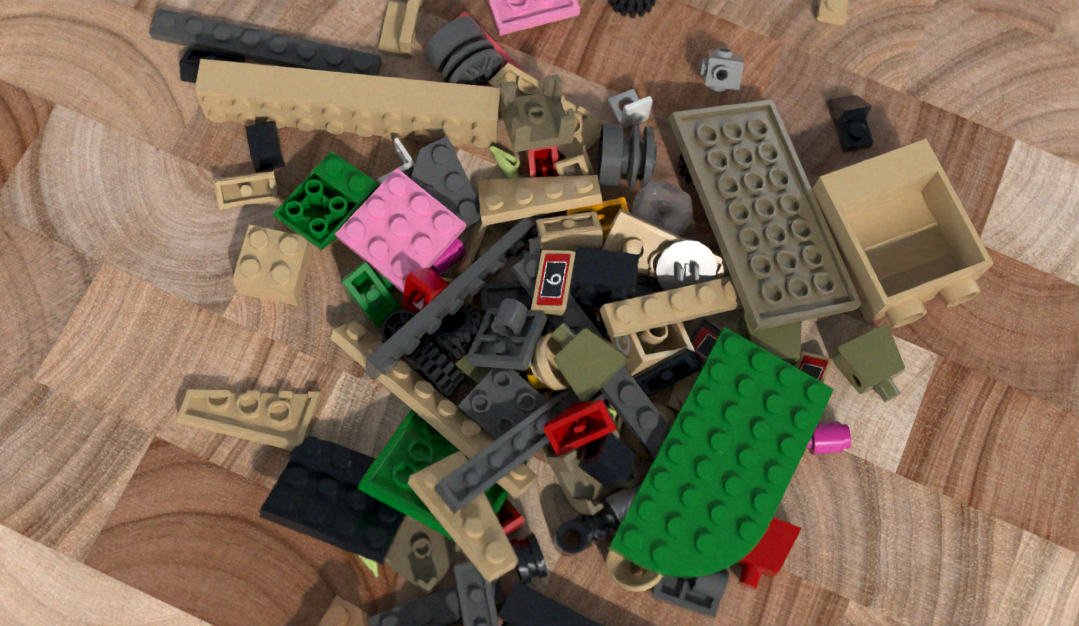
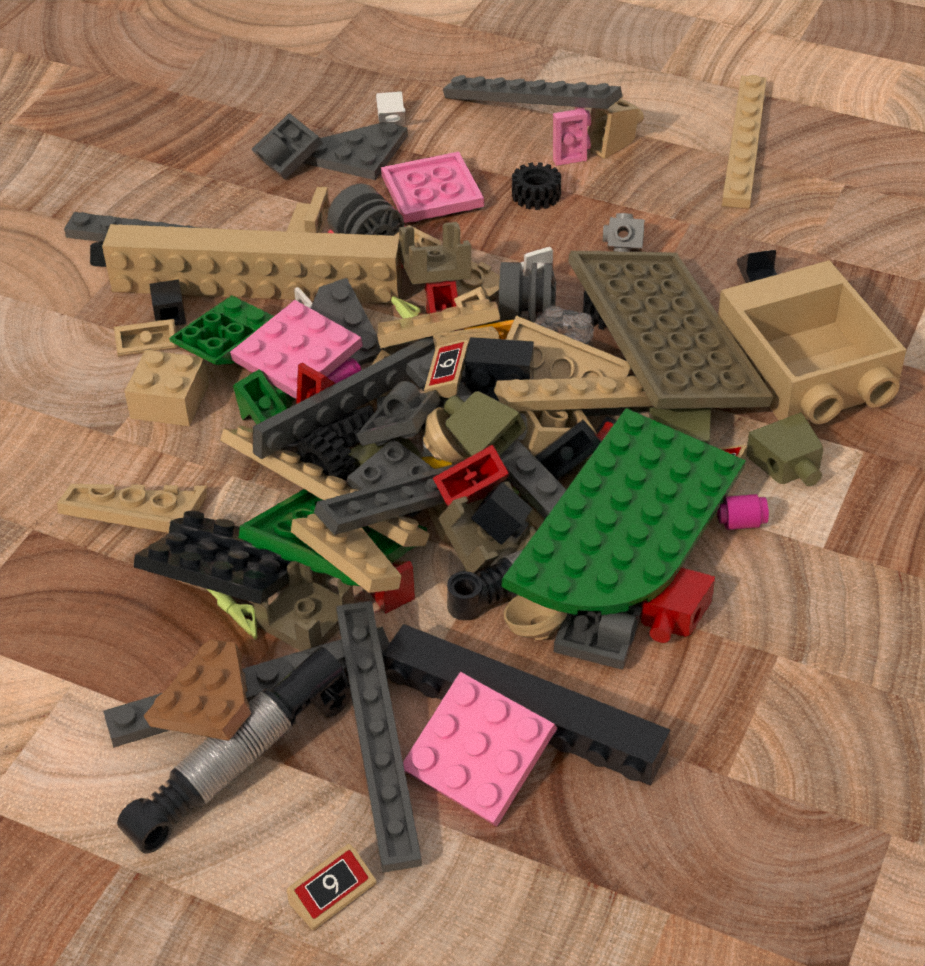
camera: 10 degrees right, 25 degrees down
(530, 558) = (418, 609): black wheel -> none
(685, 264) = (586, 360): piece -> none

